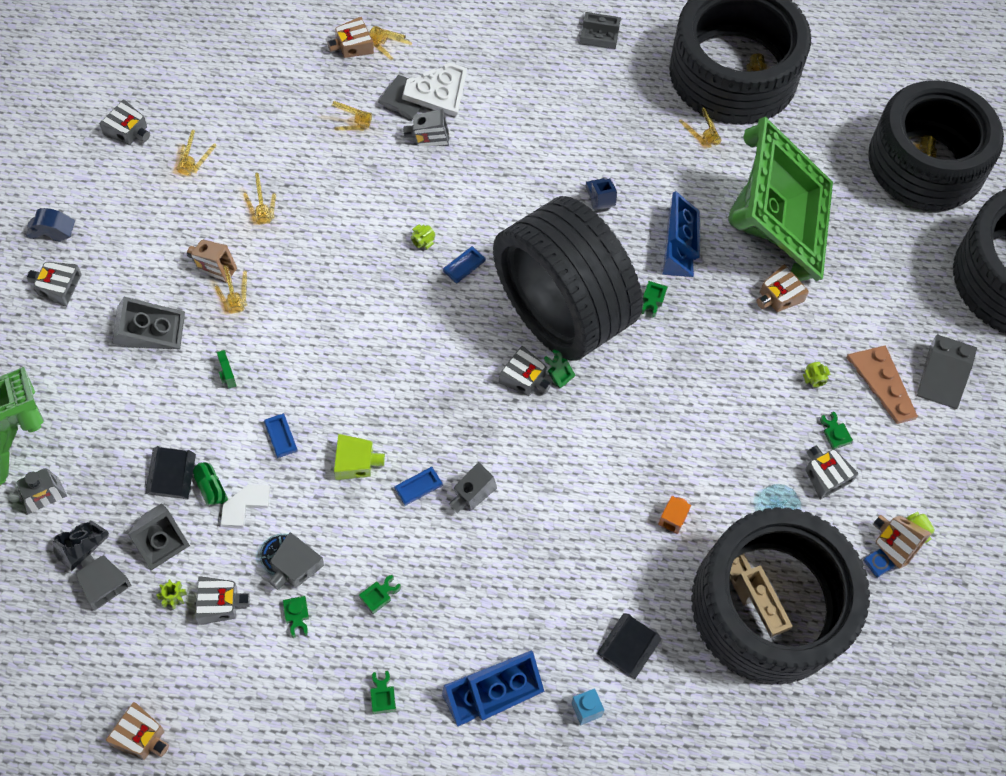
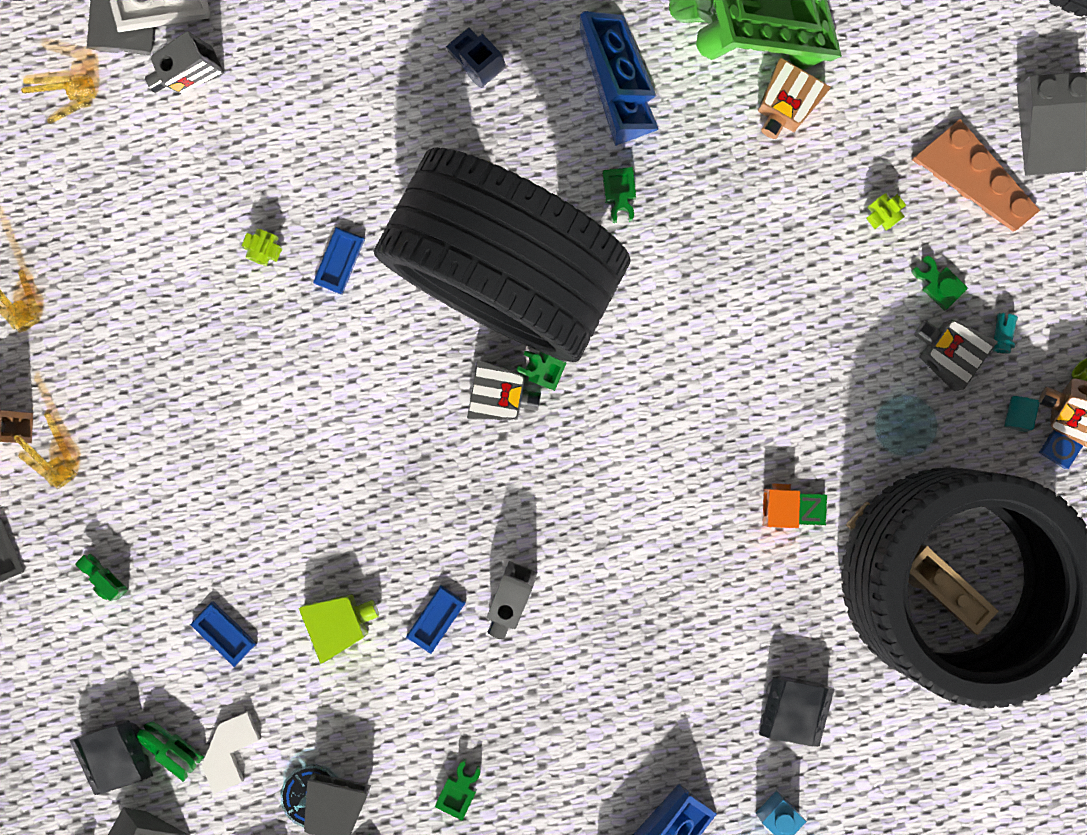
camera: 20 degrees left, 25 degrees up
(694, 526) = (813, 509): none -> green tile
(859, 528) = (1022, 413): none -> teal brick
(864, 480) = (1004, 334): none -> teal pin

